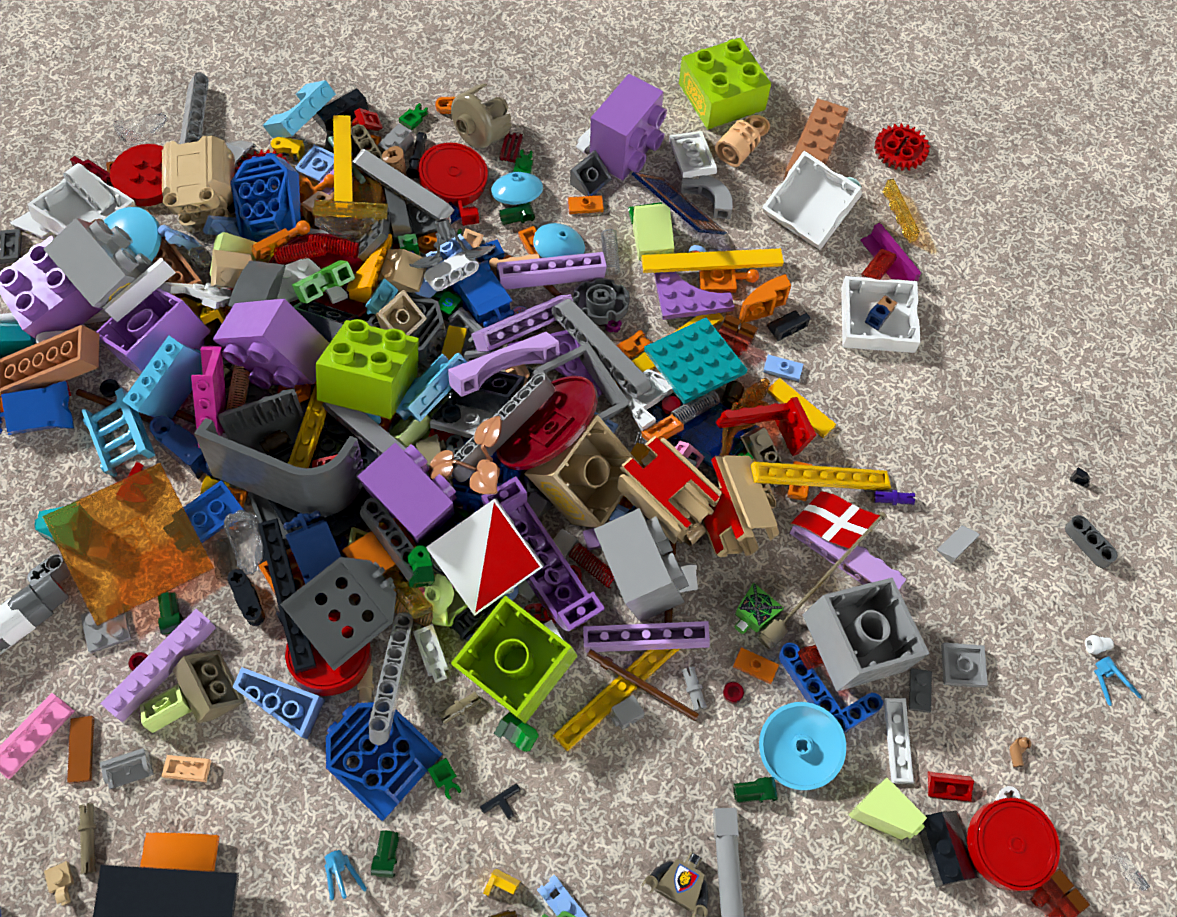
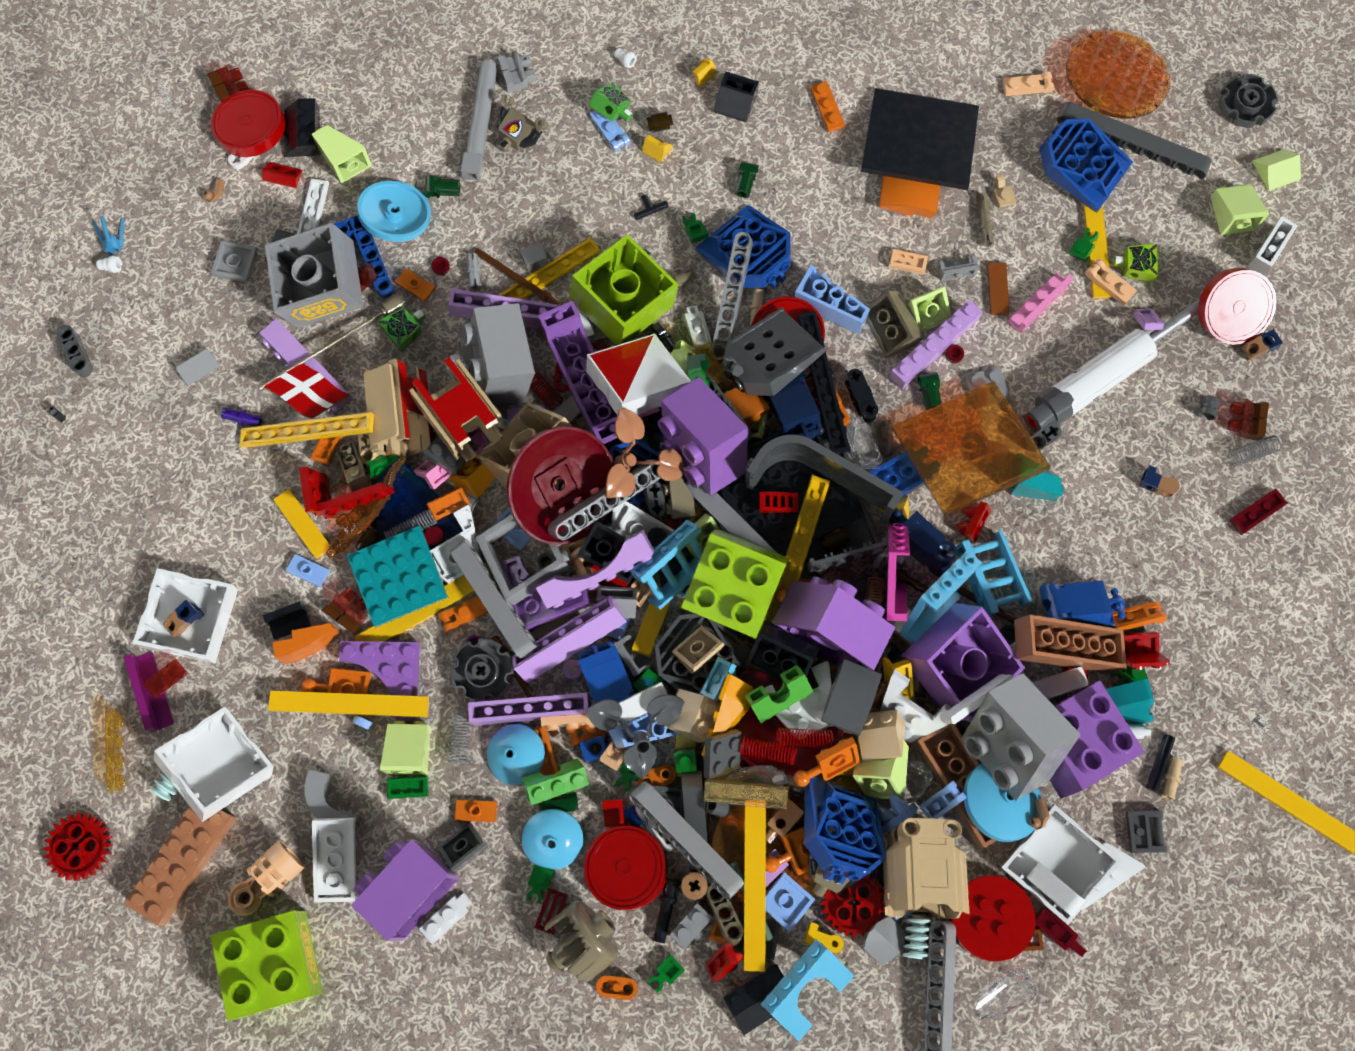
camera: 170 degrees left, 10 degrees up
(334, 865) = (786, 177): dark azure plant -> none
(507, 225) = (544, 787): none -> bright green arch
(679, 204) = (368, 779): piece -> none

